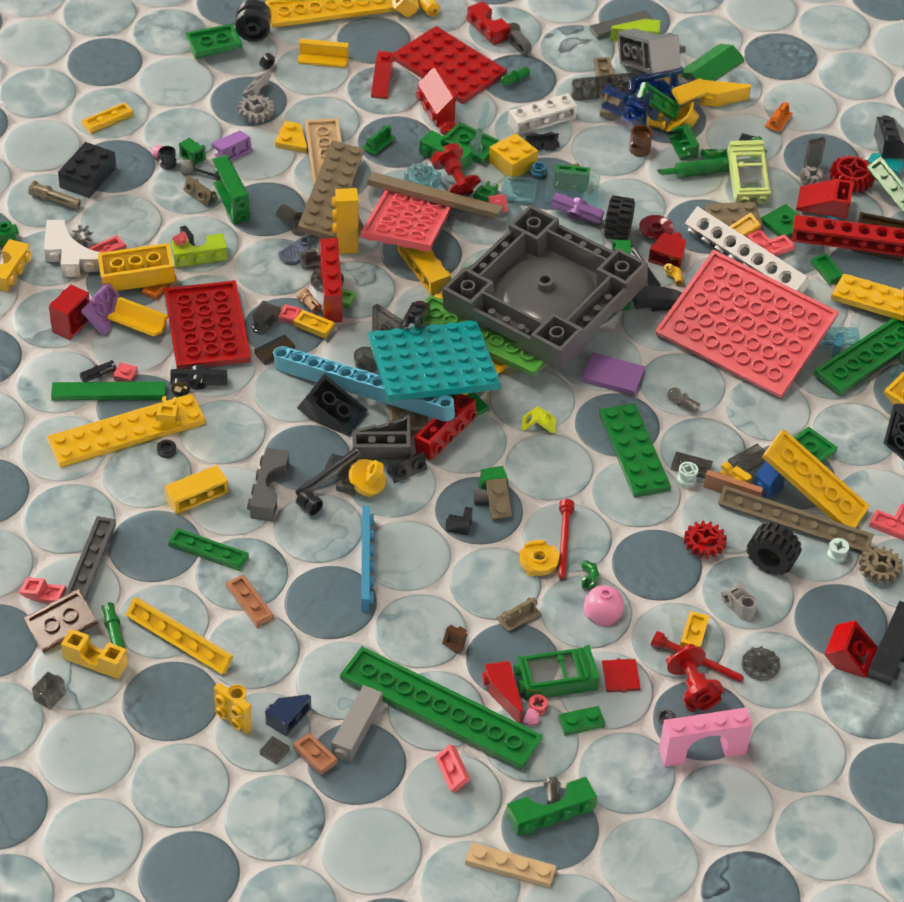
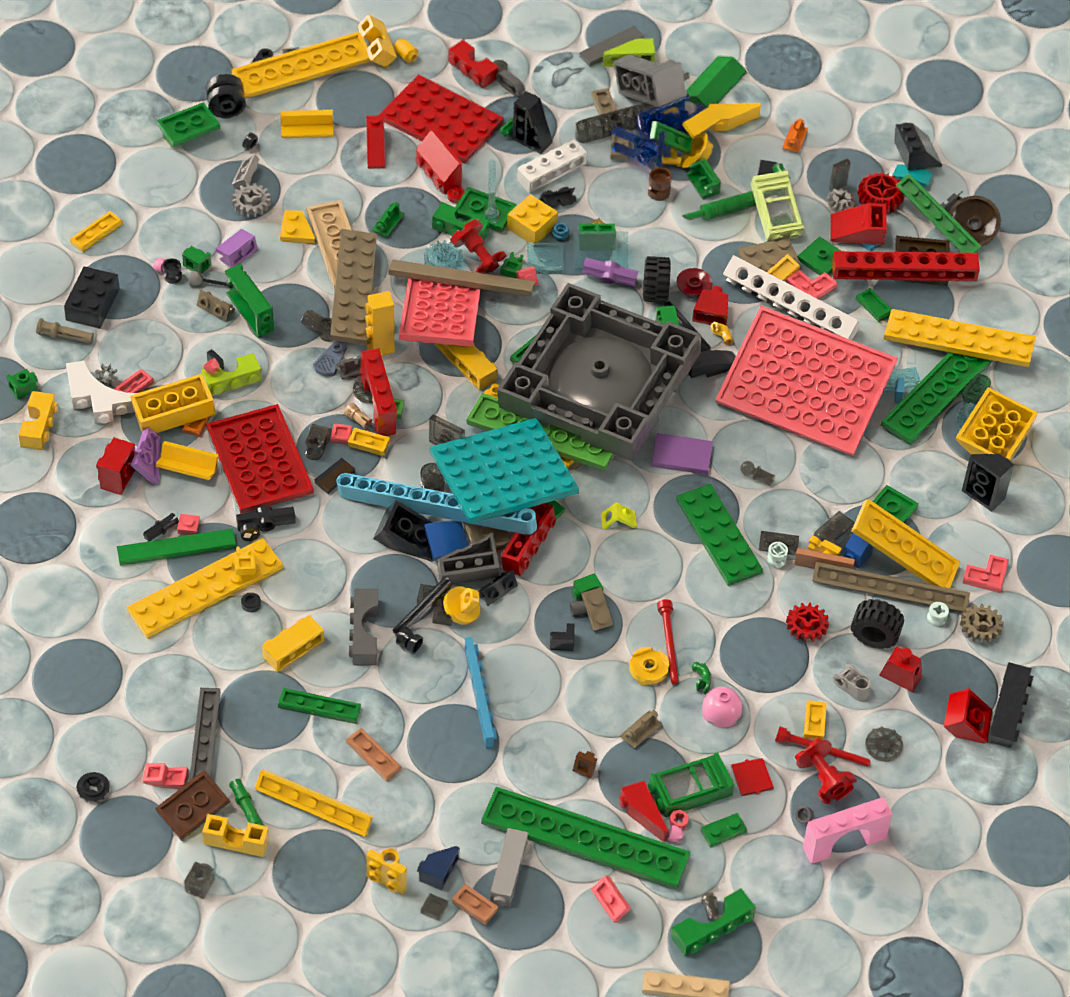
camera: 10 degrees left, 5 degrees up
(365, 413) = (445, 537): none -> blue slope
(416, 314) = (474, 419): black hinge -> none
(528, 74) = (530, 123): none -> black wedge
(714, 153) = (737, 188): green plate -> none
(792, 594) = (903, 669): none -> red torso

